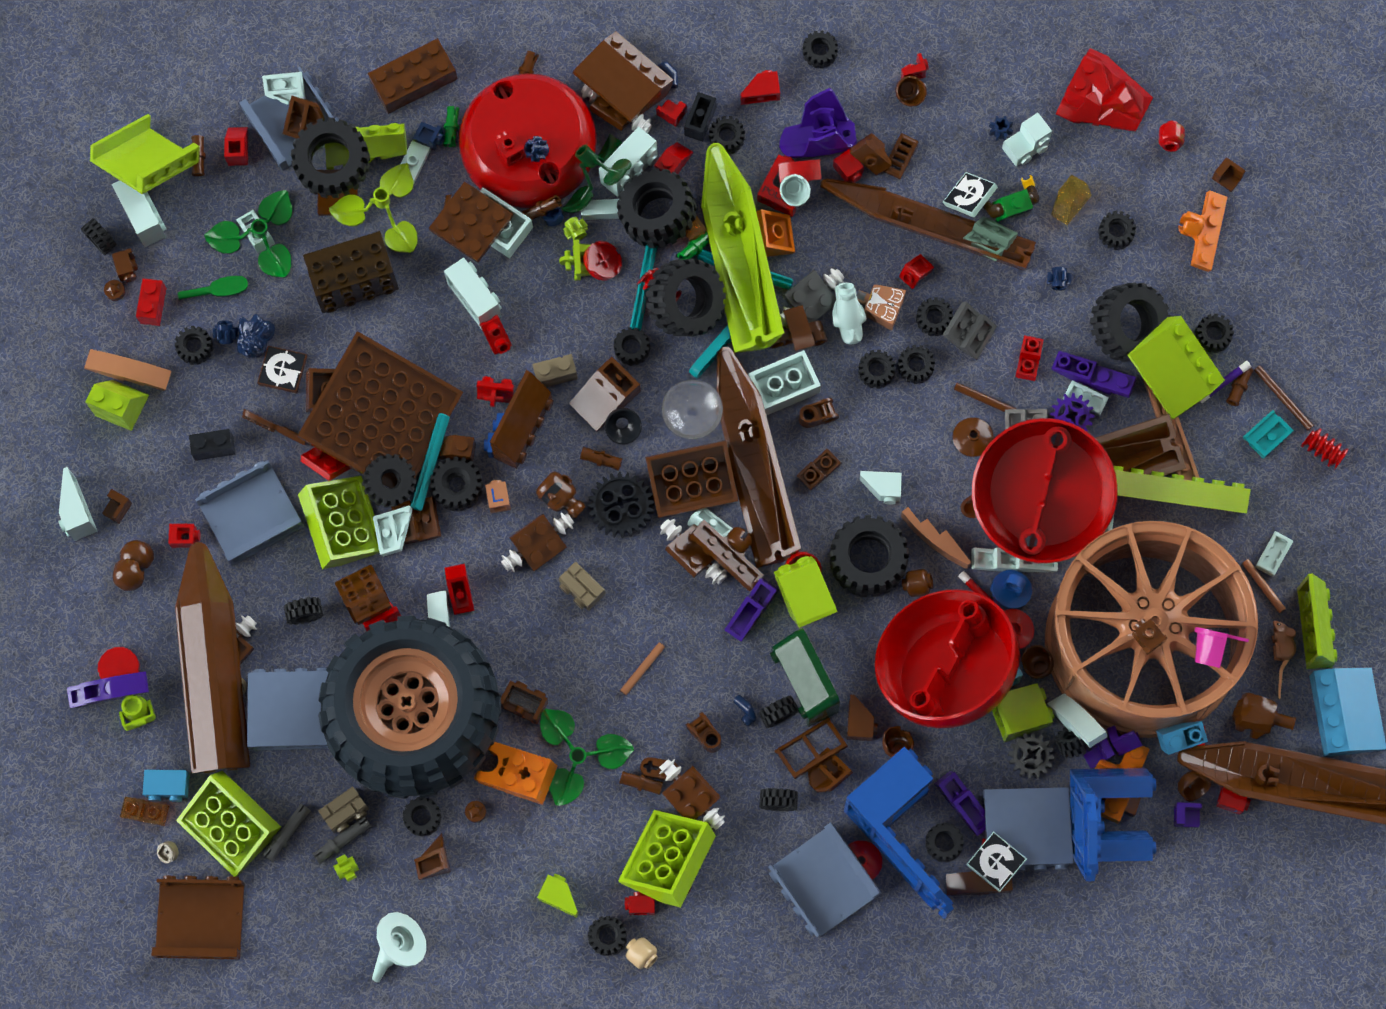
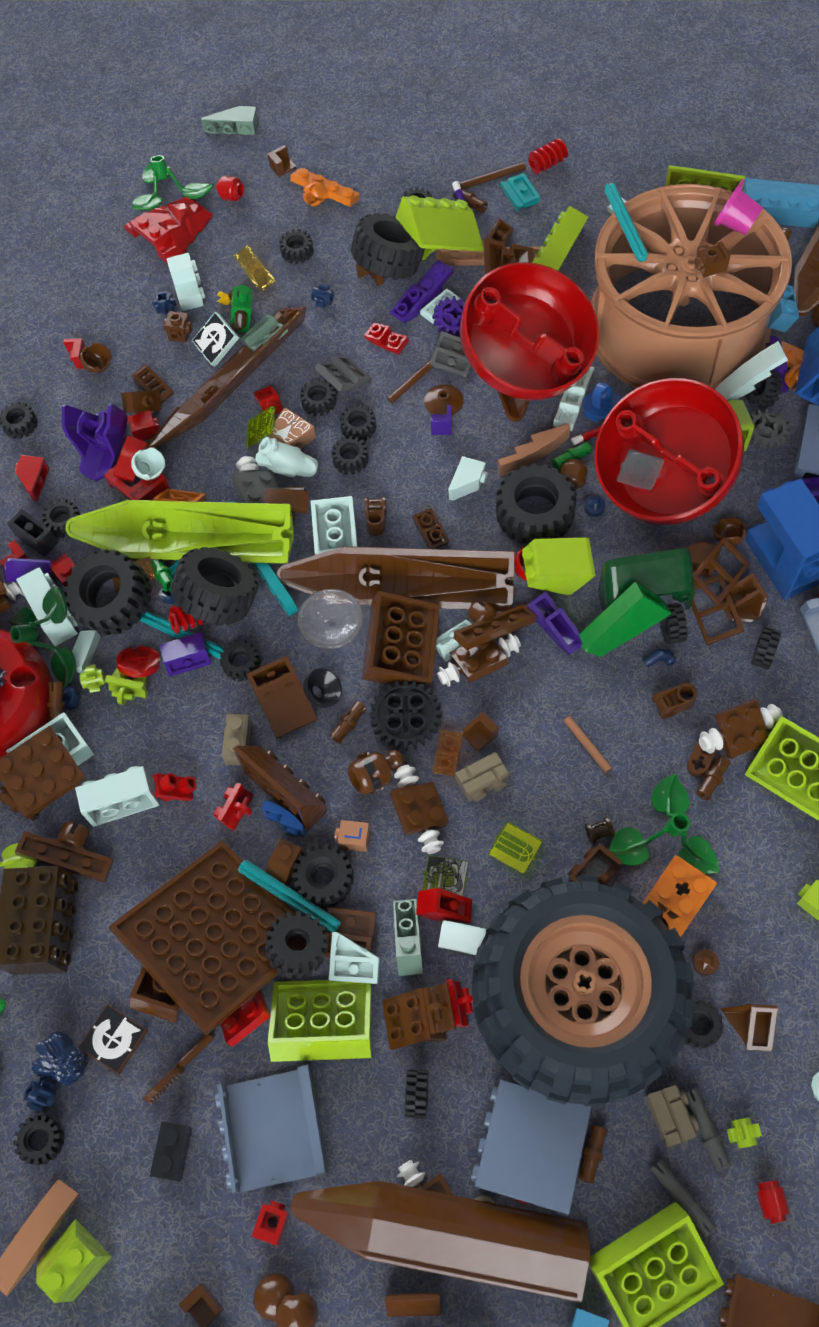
camera: 70 degrees left, 10 degrees down
(159, 655) = (413, 1304): none -> reddish brown slope
(299, 757) = (592, 1154): none -> reddish brown pin
(302, 900) = (773, 1201): none -> red brick
(416, 272) = (66, 852): none -> reddish brown plate
(424, 567) = (407, 937): none -> sand green slope
(488, 583) = (445, 874): none -> piece
(530, 633) = (515, 847): none -> clear neon green piece
(563, 697) = (599, 830): none -> dark brown bush
(597, 552) = (447, 752): none -> clear orange slope
(622, 296) = (185, 654): none -> dark purple panel
(624, 573) = (480, 731): none -> reddish brown panel
(658, 129) = (16, 568): none -> dark purple panel
(762, 665) = (623, 619): none -> green slope
(841, 755) = (731, 581): none -> reddish brown window
(879, 275) = (260, 427): none -> clear neon green piece
(890, 610) = (594, 506): none -> dark blue tile
(929, 640) = (640, 470): none -> clear light blue piece
(941, 443) = (441, 423): none -> dark purple panel
(941, 575) = (575, 453): none -> green pin
(974, 153) = (177, 326): none -> reddish brown brick
(1168, 52) = (157, 171): none -> green plant
(1176, 542) = (626, 222): none -> teal axle
(1197, 428) = (500, 231): none -> reddish brown slope
(1271, 107) = (232, 121): none -> sand green slope

